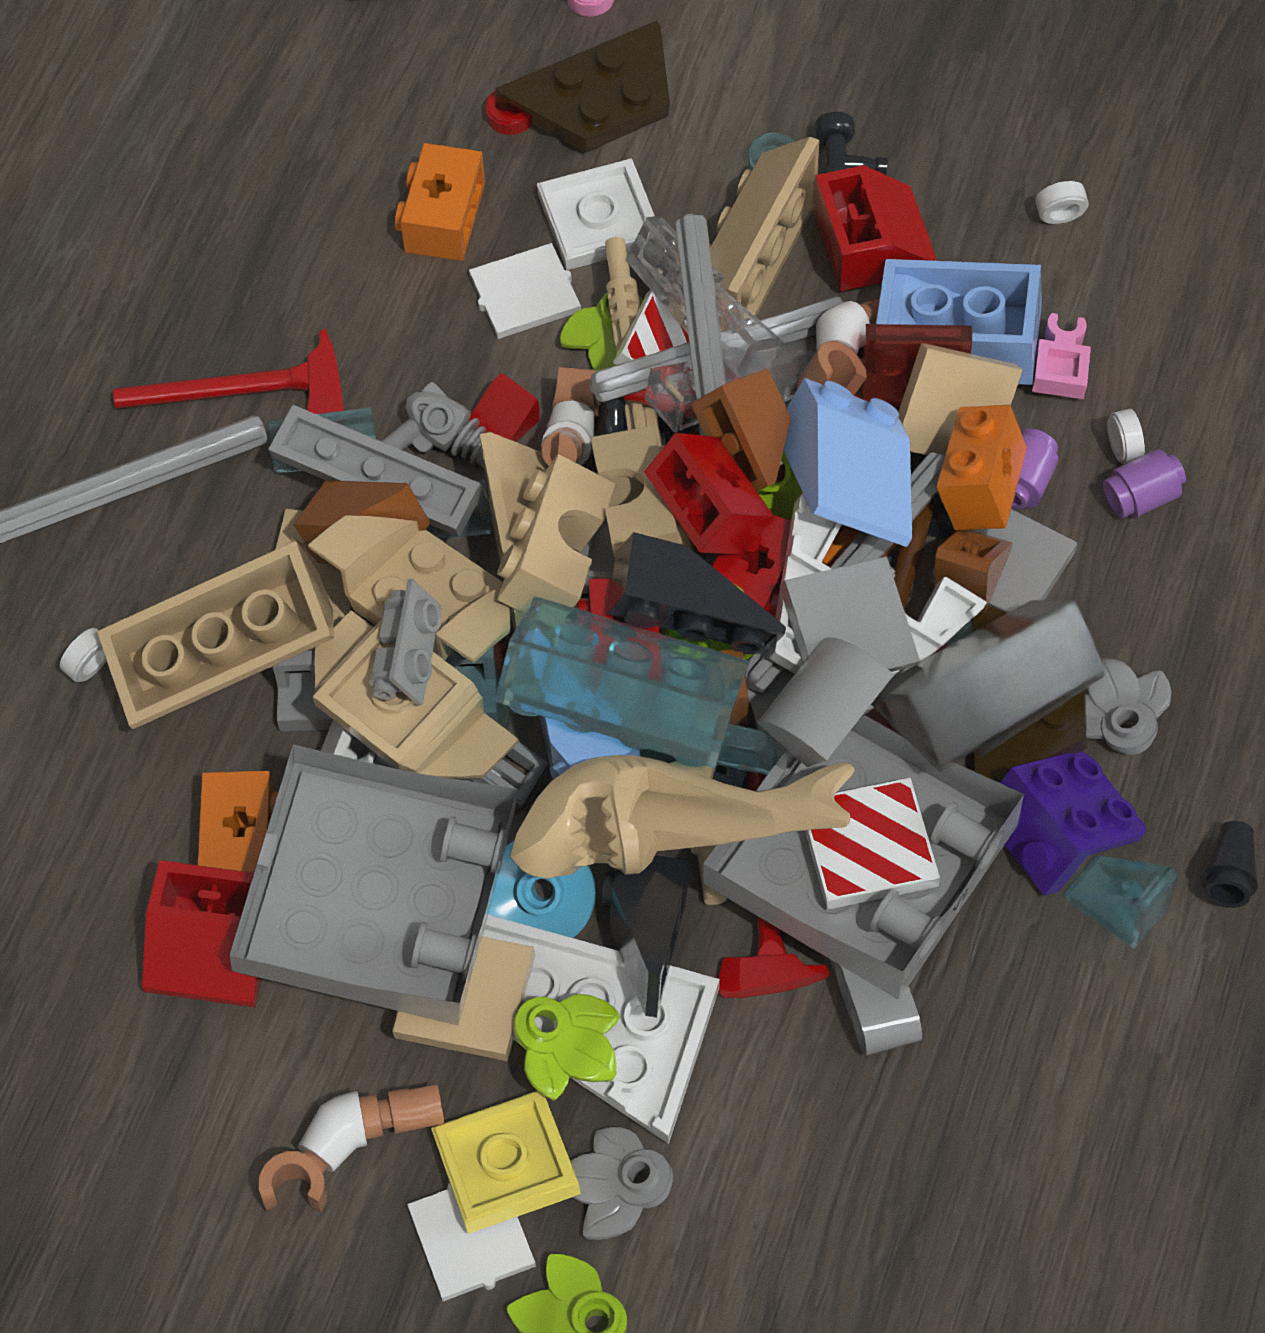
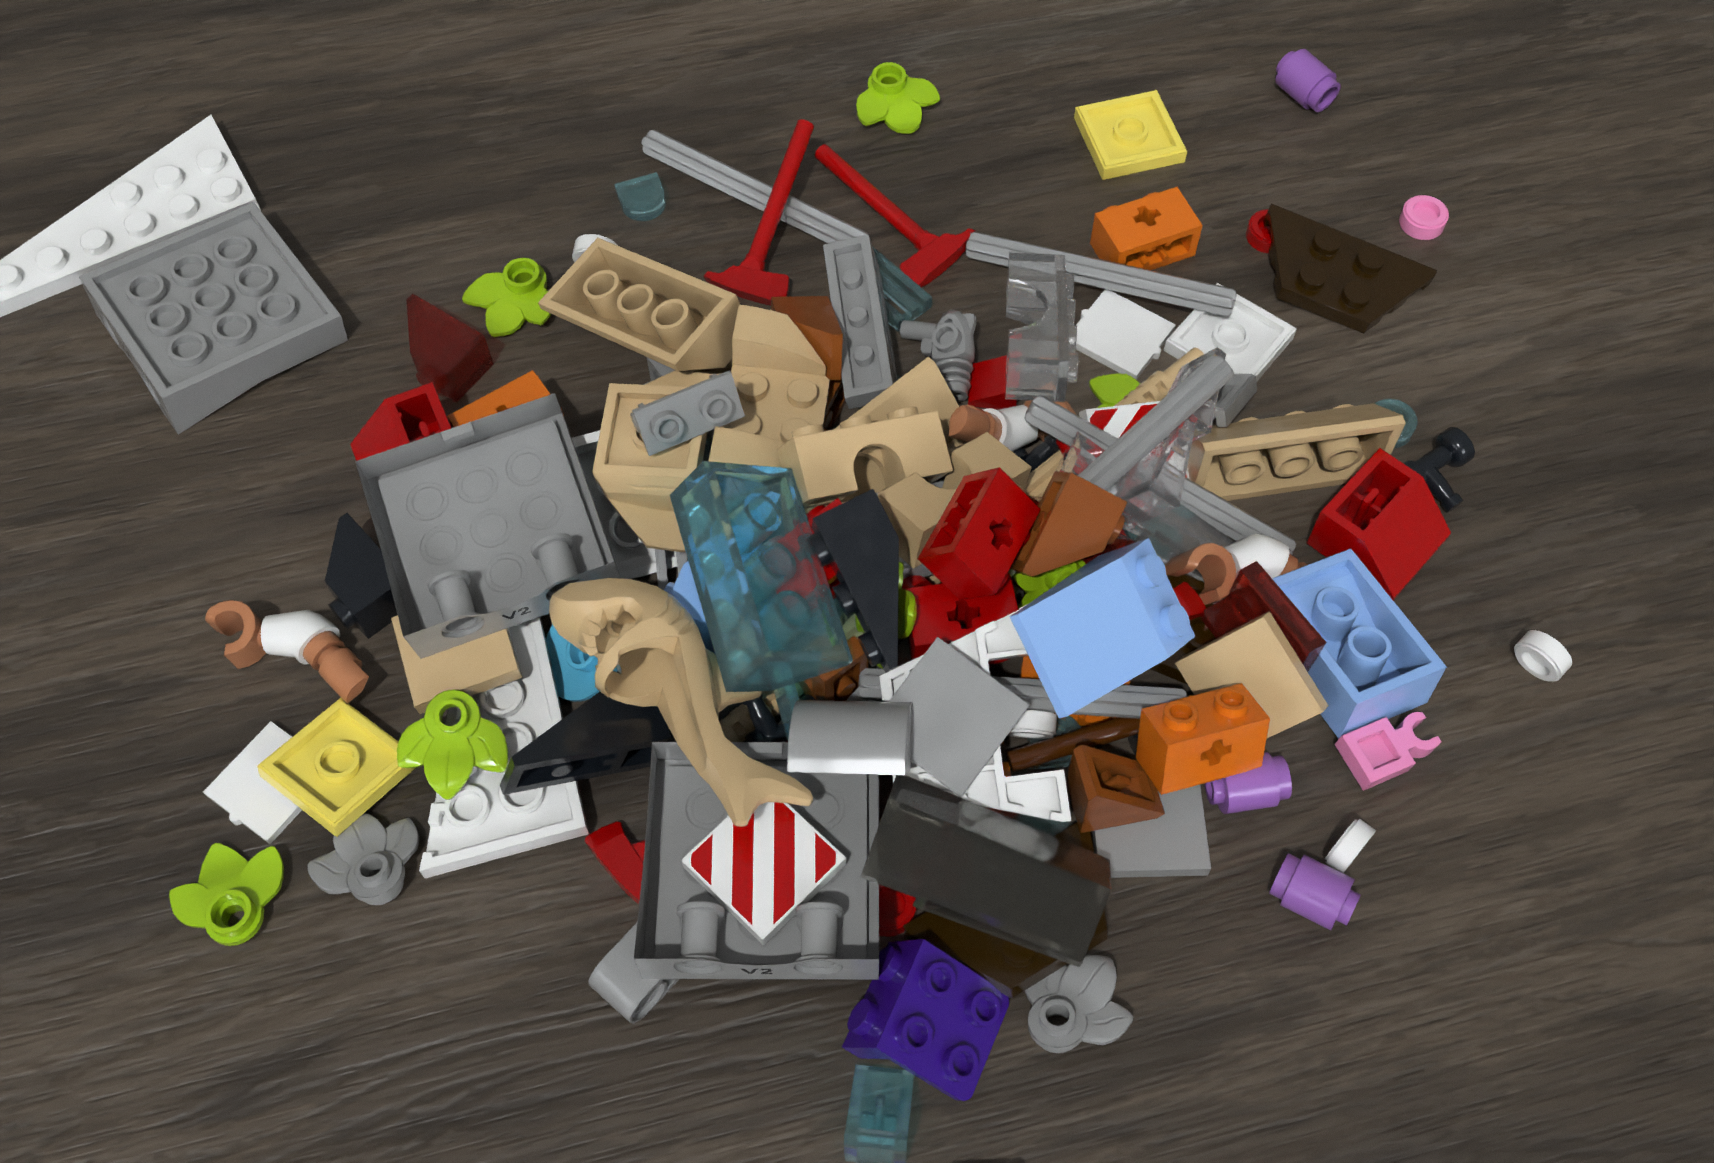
camera: 55 degrees right, 0 degrees up
(37, 582) = (641, 197): none -> clear light blue tile
(76, 765) = (510, 296): none -> lime plate
(91, 848) = (445, 349): none -> clear red slope
(111, 300) = (895, 99): none -> lime plate
(219, 543) = (749, 278): none -> red piece
(311, 143) = (1130, 134): none -> light yellow tile
(316, 1043) = (359, 580): none -> black slope
(454, 264) = (1113, 275): none -> light grey axle
(536, 354) = (1043, 352): none -> clear arch

